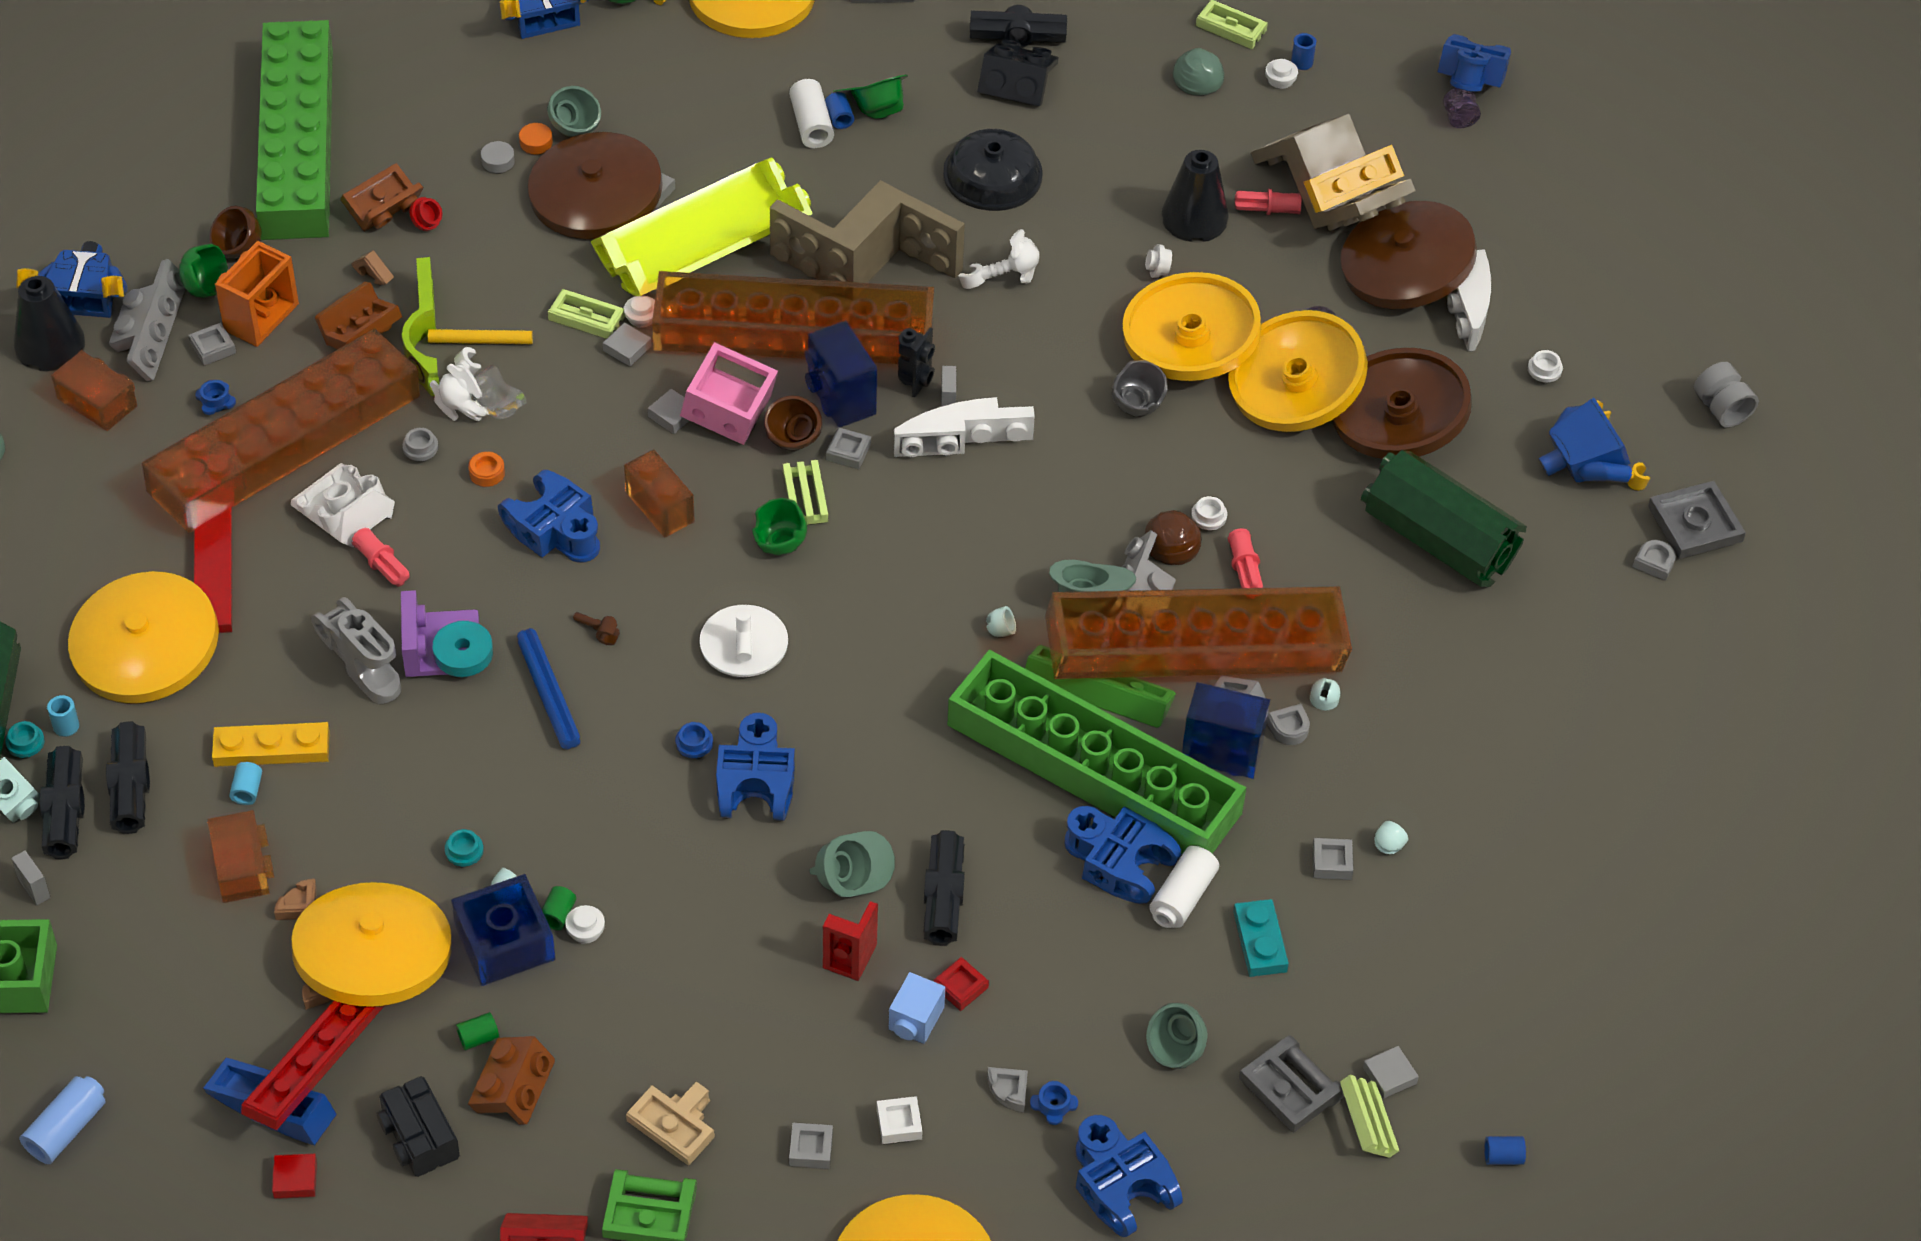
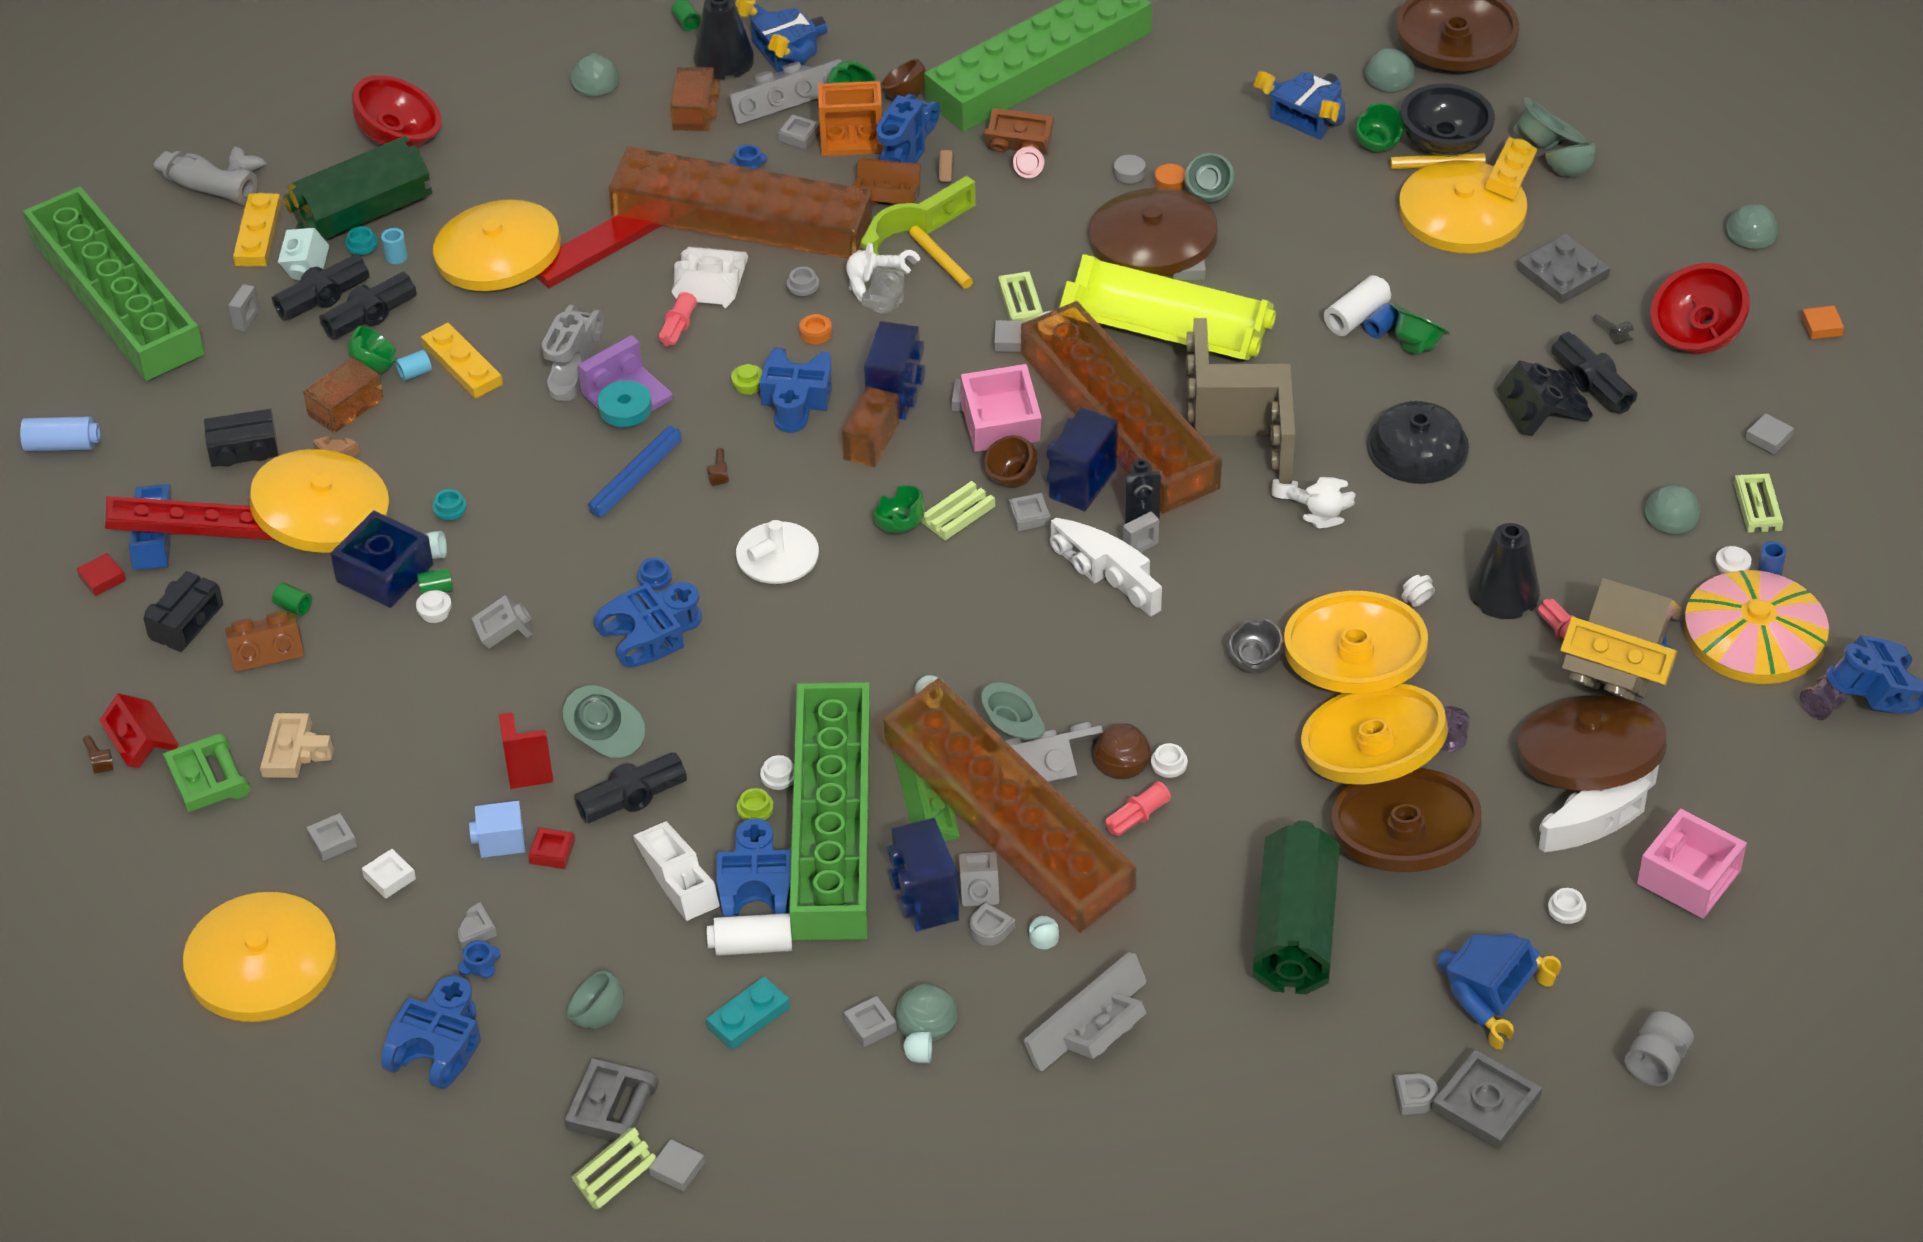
camera: 60 degrees right, 5 degrees down
(199, 803) = (371, 349): none -> green hair
(219, 967) = (241, 438): none -> black brick
(314, 264) = (906, 127): none -> blue piece
(506, 547) = (747, 378): none -> lime plate
(611, 433) = (895, 363): none -> clear blue brick
(657, 881) = (502, 620): none -> light grey bracket
(1009, 775) = (777, 772): none -> white plate
(1034, 811) = (755, 804): none -> lime plate
(1066, 902) = (677, 870): none -> white slope
(1353, 815) = (926, 1010): none -> sand green piece
(1368, 87) = (1756, 627): none -> dish
(1452, 707) = (1092, 1017): none -> light grey bracket
(1567, 275) = (1691, 863): none -> bright pink piece

